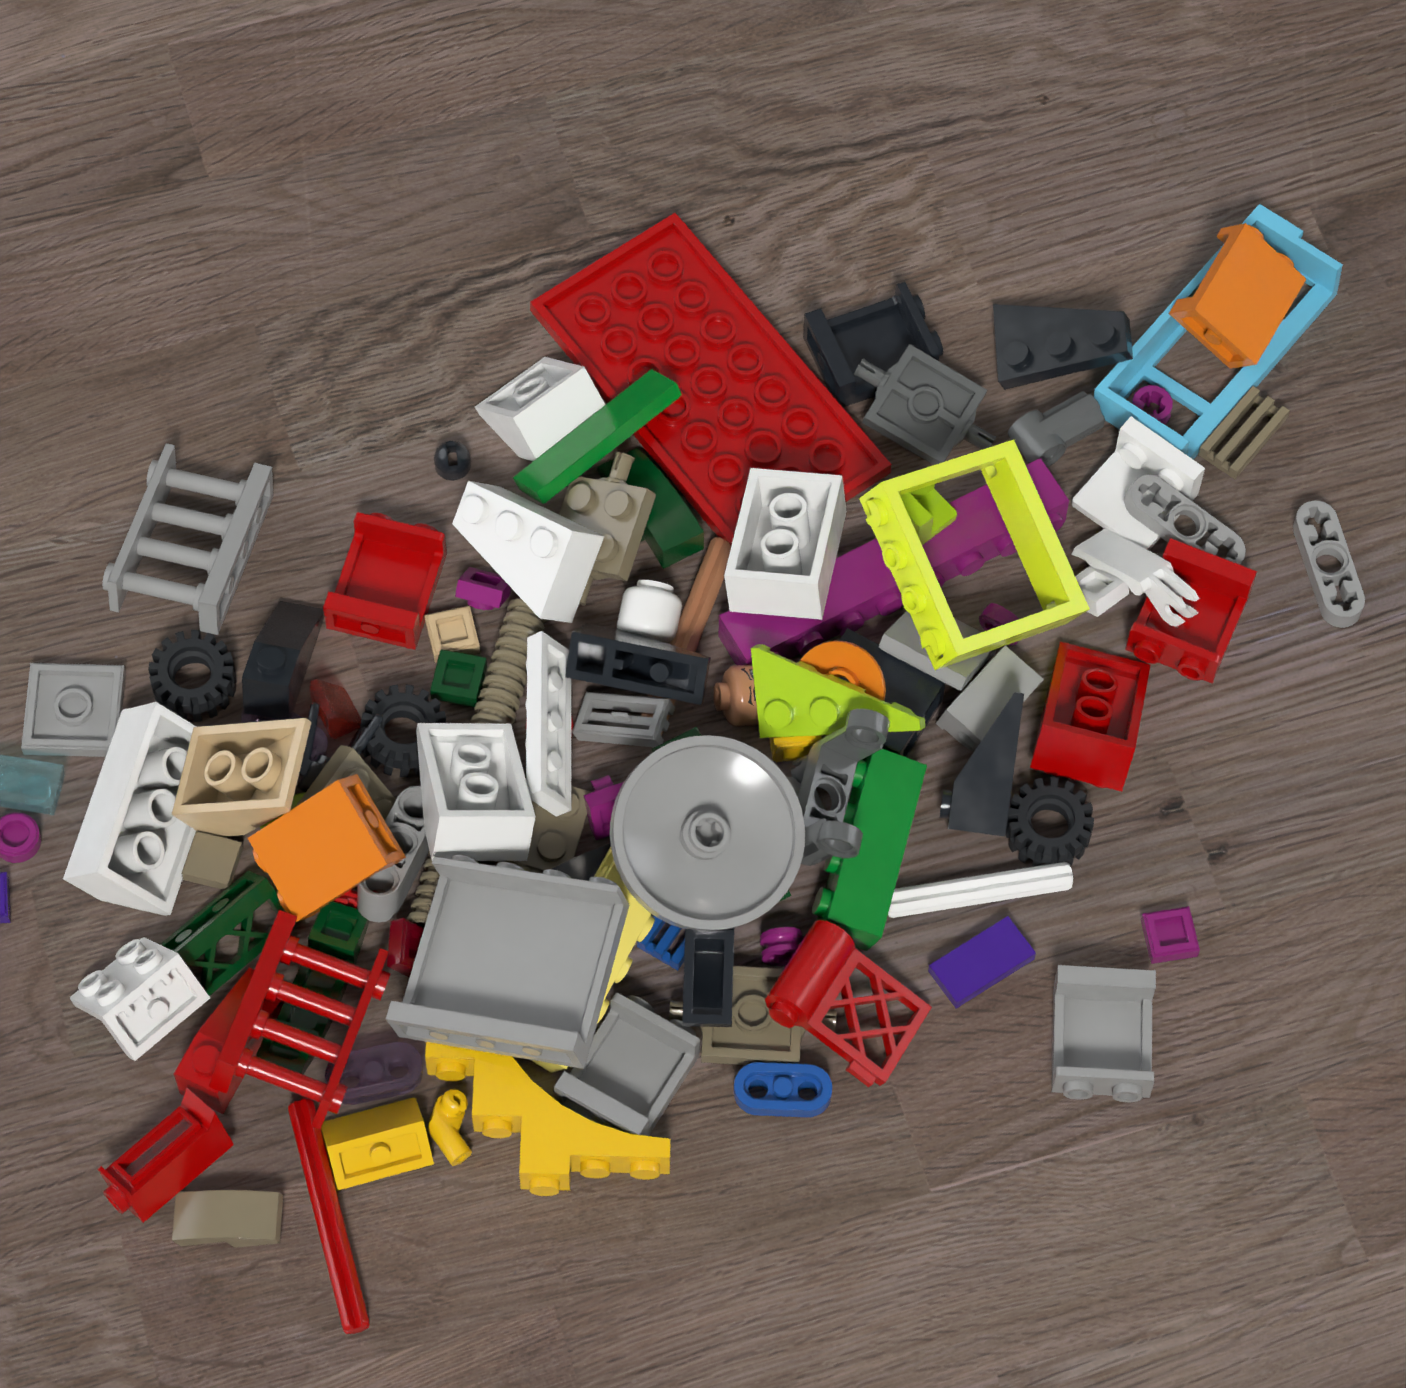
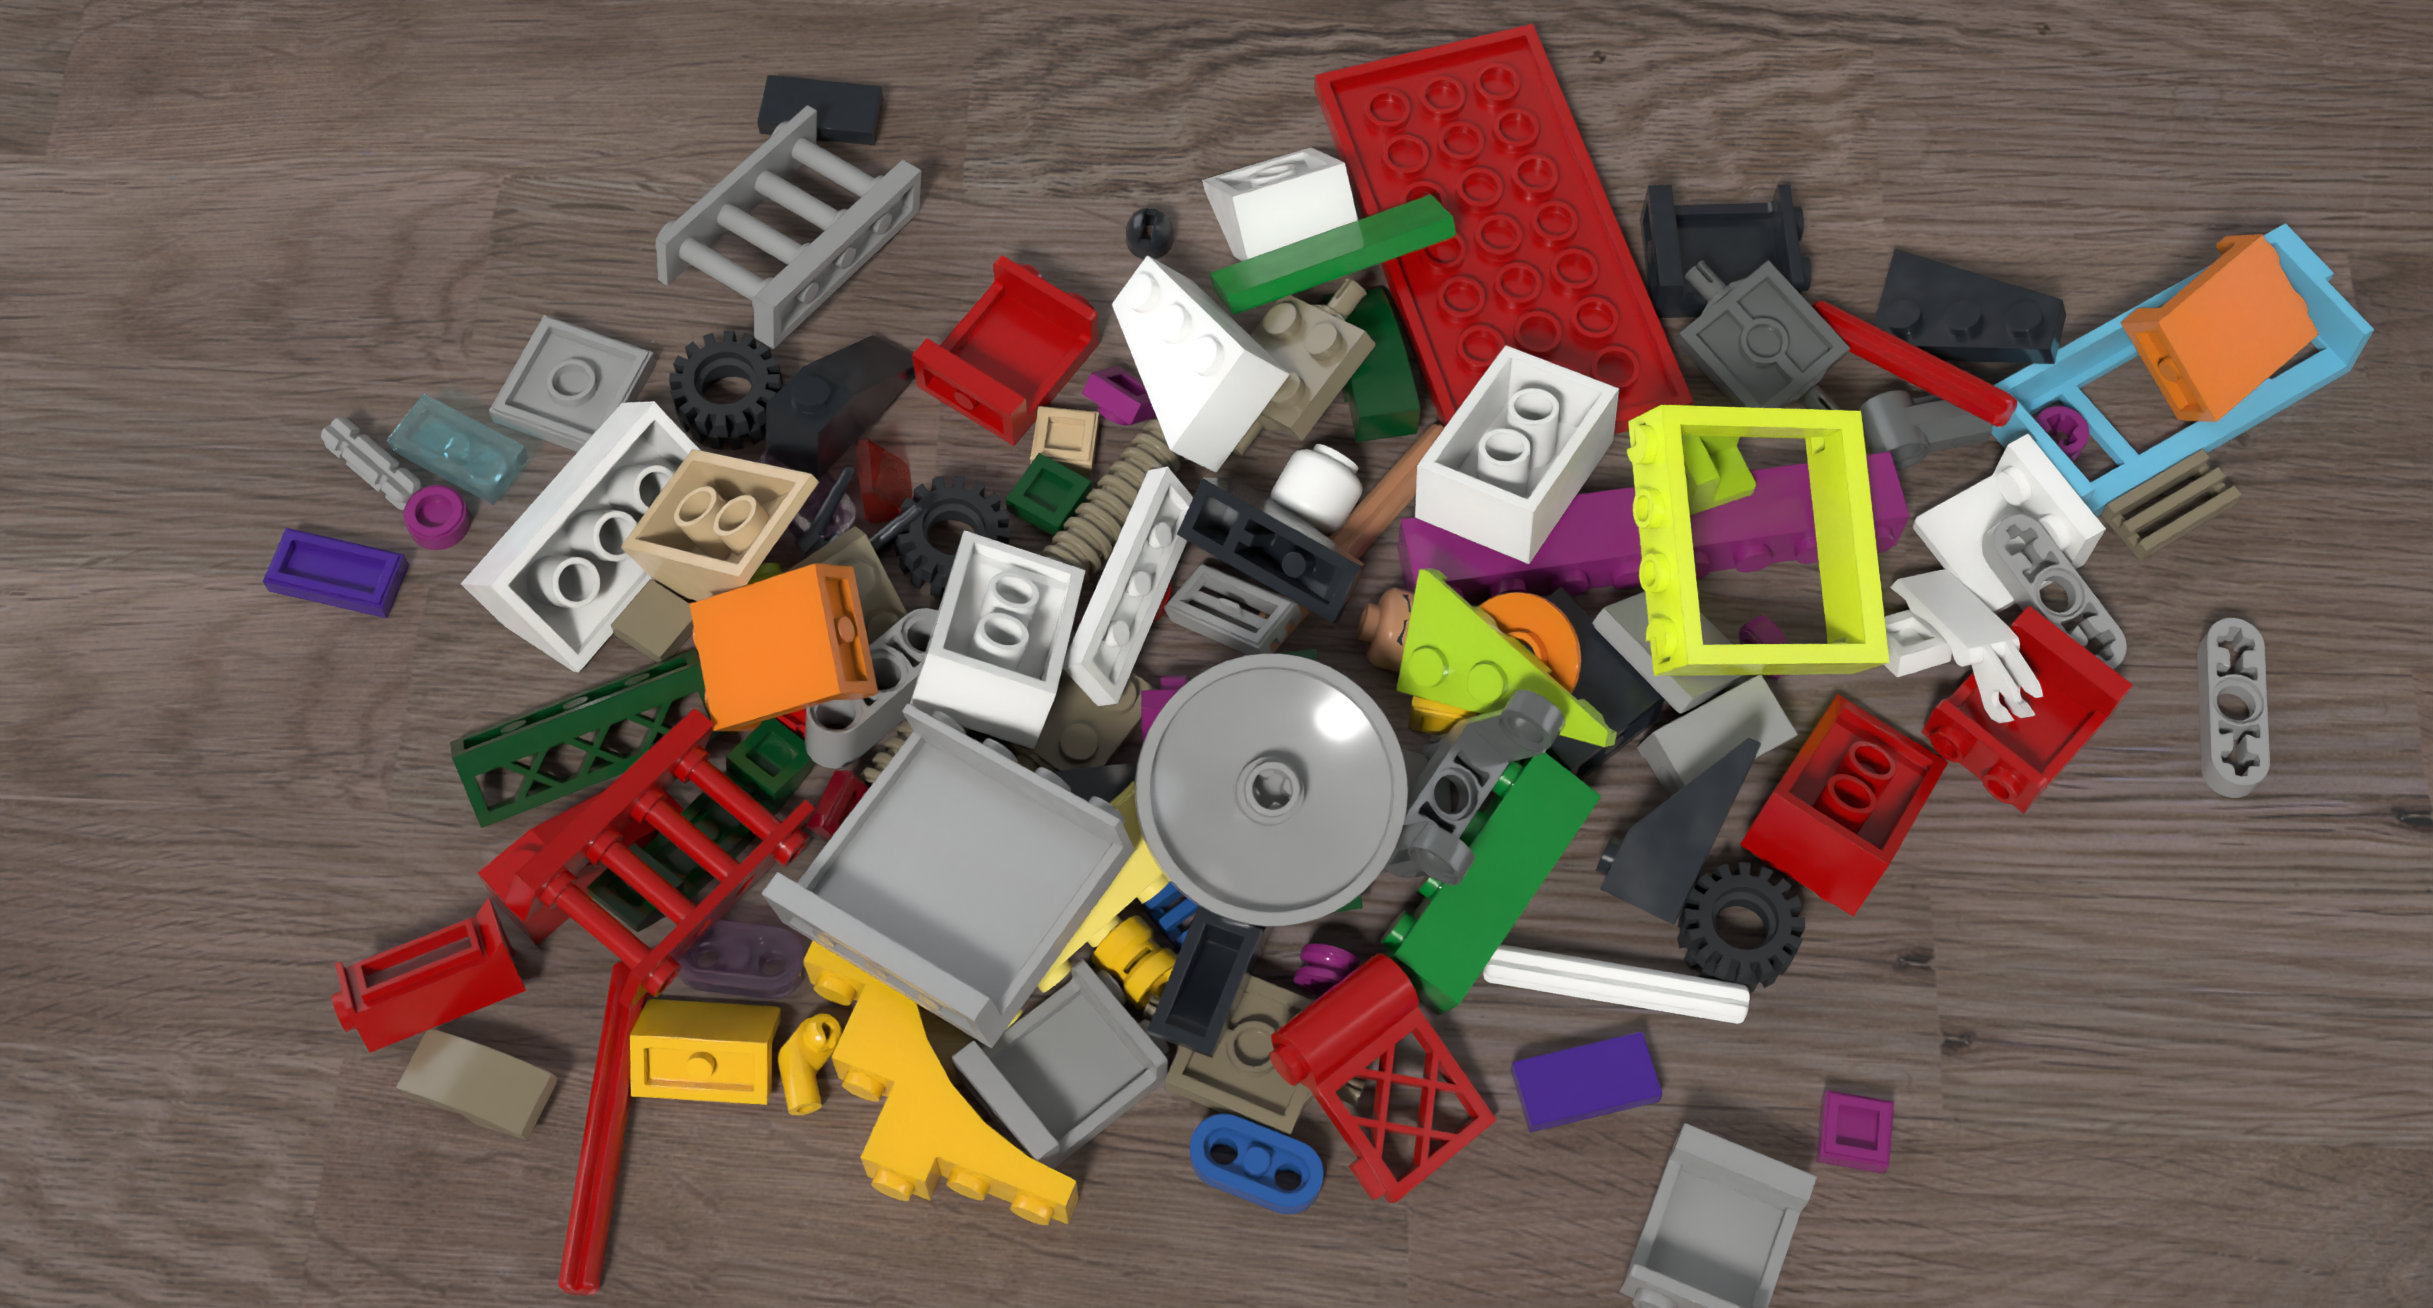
camera: 20 degrees right, 0 degrees up
(141, 995) = (487, 762): white bracket -> none
(188, 432) = (843, 109): none -> black tile
(652, 982) = (1135, 960): none -> yellow wheel
(1038, 389) = (1920, 367): none -> red axle

